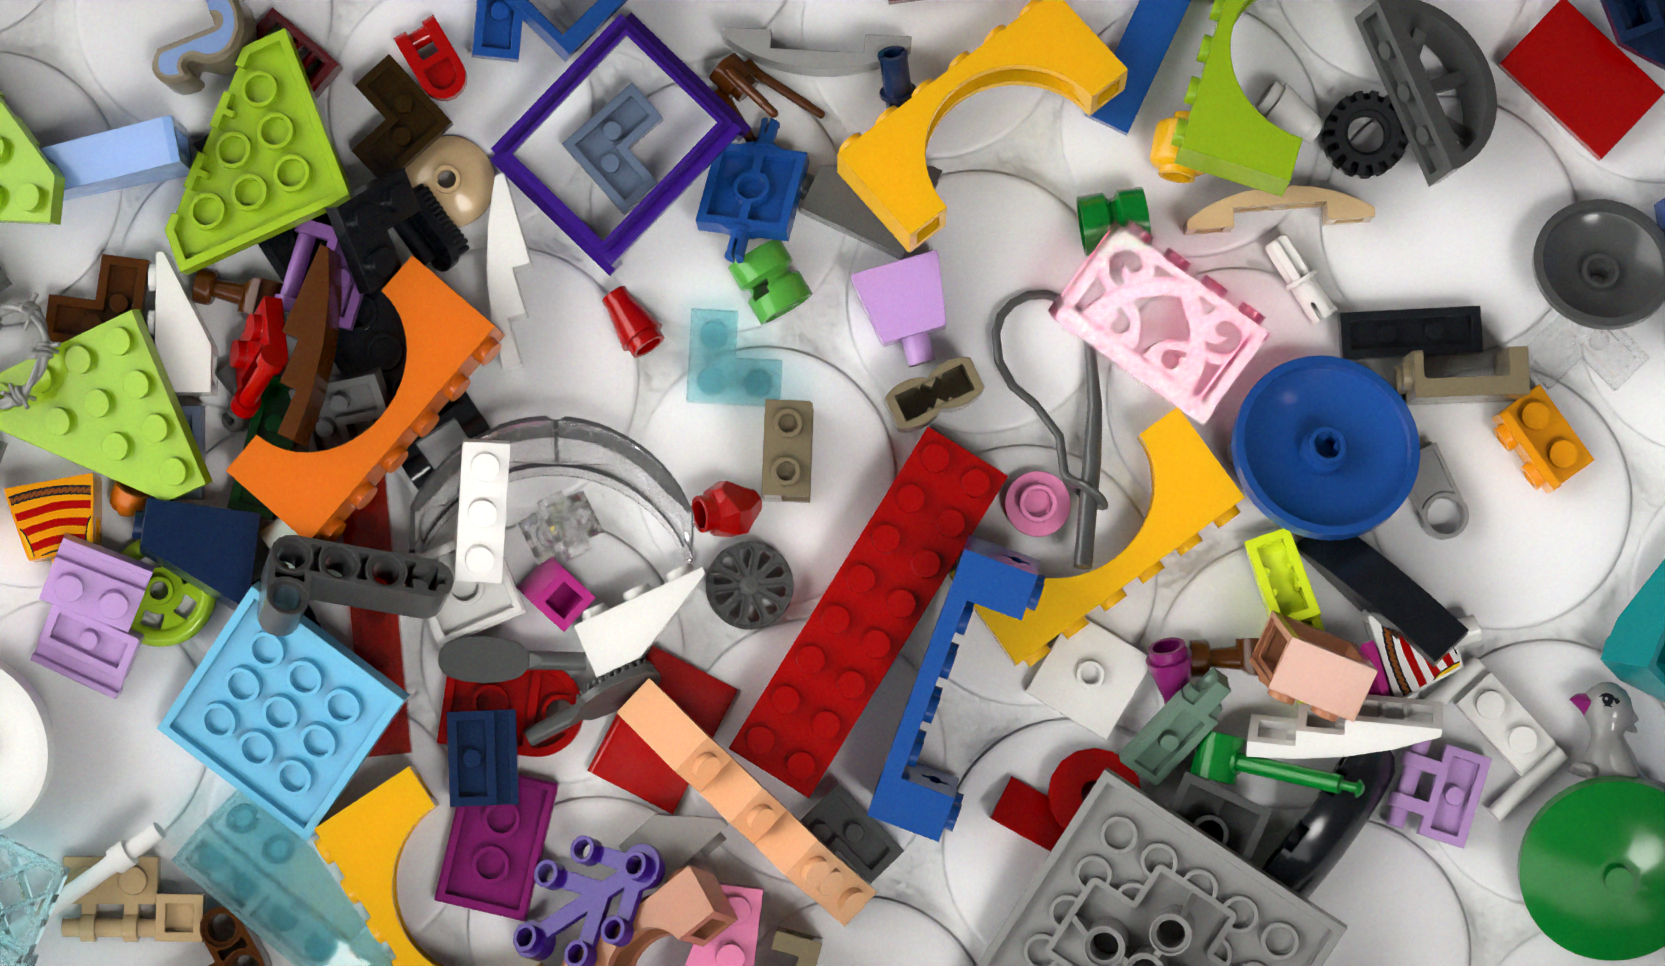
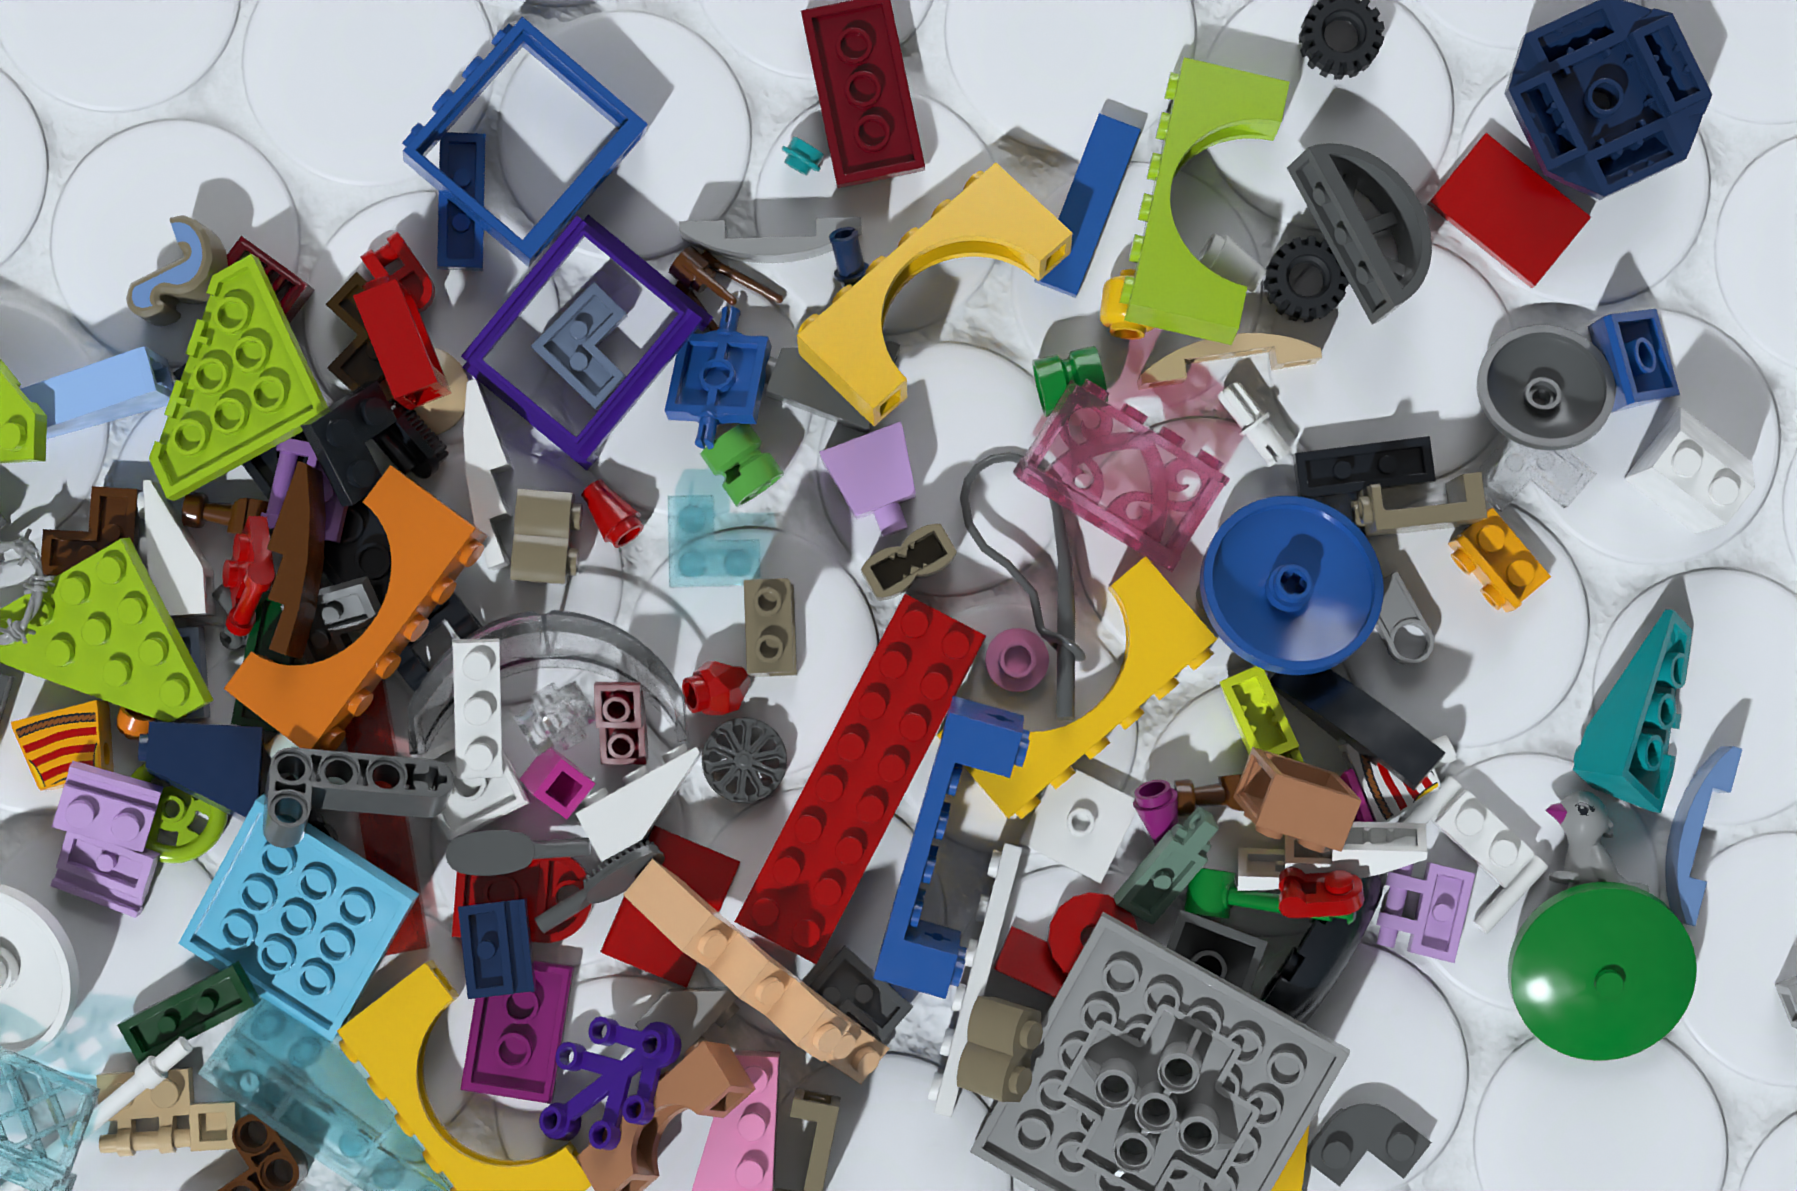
camera: 10 degrees left, 0 degrees up
(164, 798) = (189, 1011): none -> dark green plate
(432, 131) = (401, 342): none -> red window
(561, 340) = (544, 536): none -> dark tan brick
(627, 537) = (621, 723): none -> slope
(963, 845) = (980, 958): none -> white plate
(989, 899) = (999, 1049): none -> dark tan brick
(1328, 764) = (1319, 893): none -> red plate

